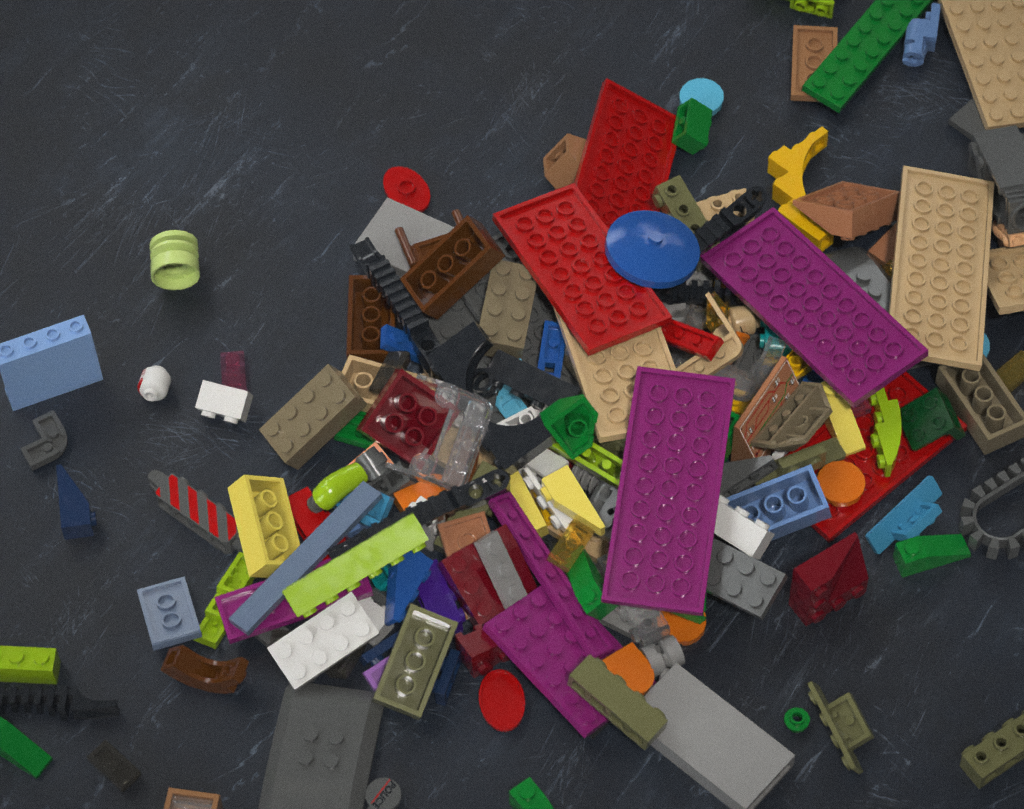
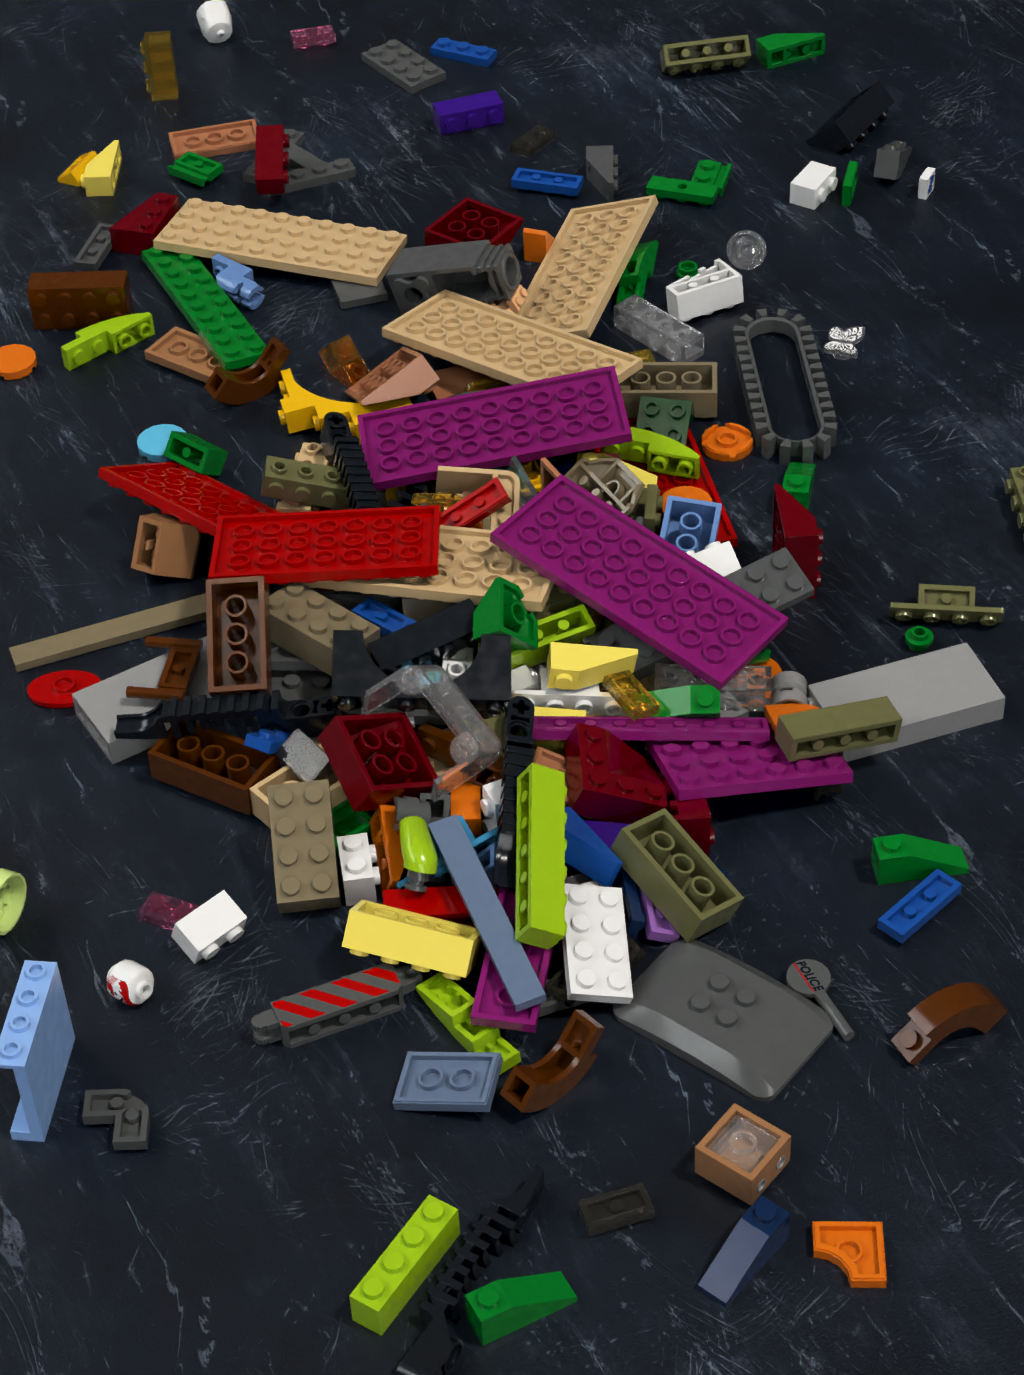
camera: 60 degrees left, 15 degrees down
(75, 511) = (235, 1120): dark blue slope -> none
(325, 459) = (356, 868): none -> white brick
(462, 174) = (108, 633): none -> dark tan tile
(500, 569) = (626, 749): light grey plate -> none
(501, 700) = (754, 841): red piece -> none
(652, 249) = (348, 491): blue dish -> none
(801, 113) = (252, 382): none -> reddish brown arch
(870, 162) = (344, 361): none -> clear orange slope
(907, 517) = (754, 481): dark azure bracket -> none
(957, 476) = (727, 442): none -> orange tile

